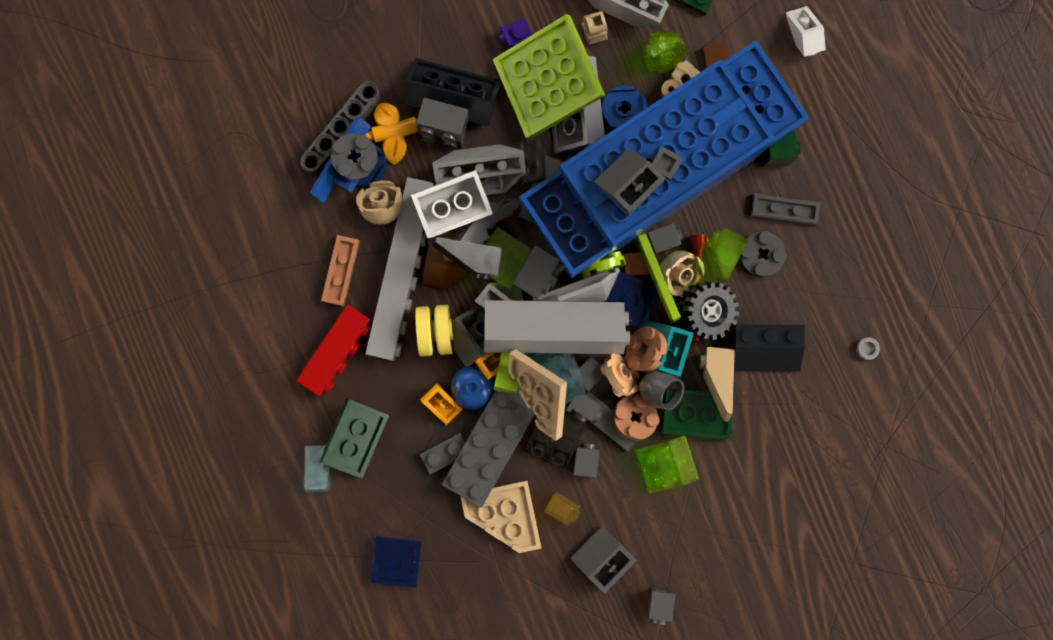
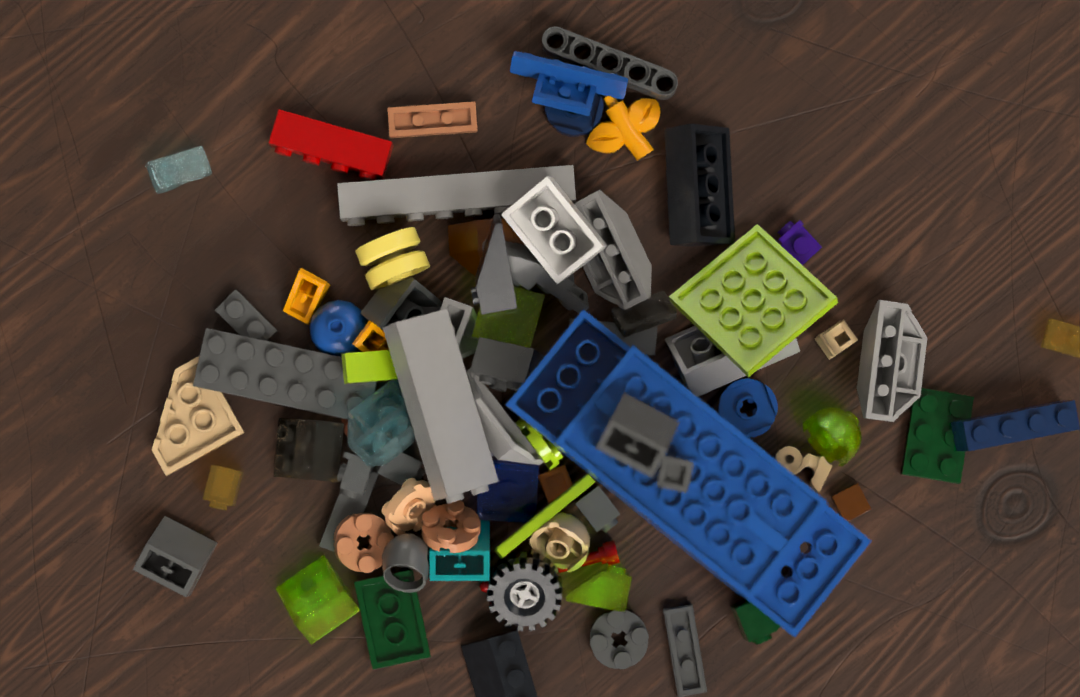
camera: 65 degrees right, 0 degrees up
(342, 149) = (581, 75): dark grey plate -> none
(354, 438) = (230, 202): dark green plate -> none
(380, 202) = (531, 141): tan cylinder -> none
(396, 561) = (94, 302): clear blue plate -> none
(442, 123) = (653, 186): dark grey slope -> none
(540, 391) = (354, 411): tan plate -> none
(586, 460) = (291, 497): dark grey brick -> none
(661, 606) = (140, 646): dark grey brick -> none
(719, 377) = (447, 629): tan slope -> none
(806, 31) = (919, 607): white slope -> none

